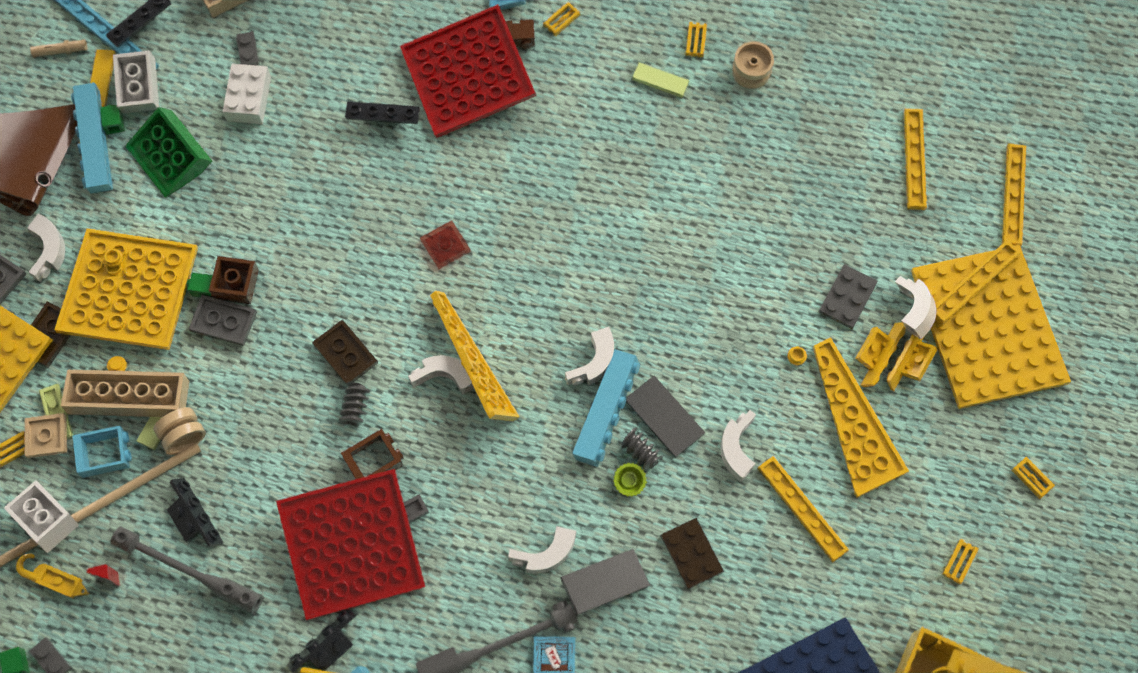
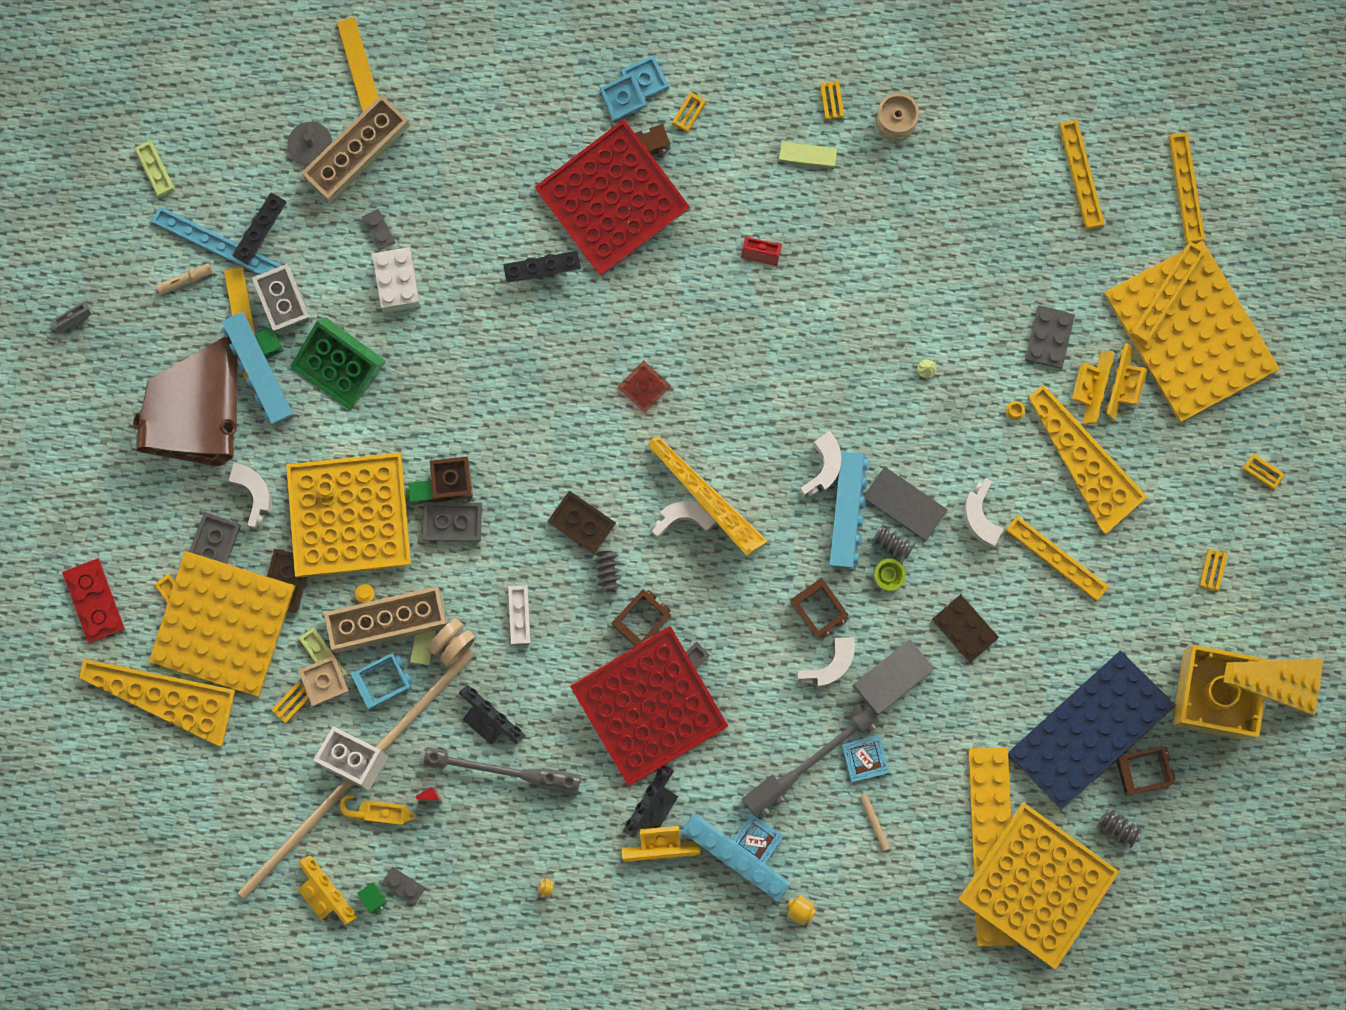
camera: 15 degrees left, 10 degrees up
(256, 423) = (519, 615): none -> white plate
(544, 476) = (808, 592): none -> reddish brown window
(592, 152) = (761, 251): none -> red slope
(720, 295) = (926, 368): none -> yellowish green plate
(923, 313) = (1127, 337): white arch -> none

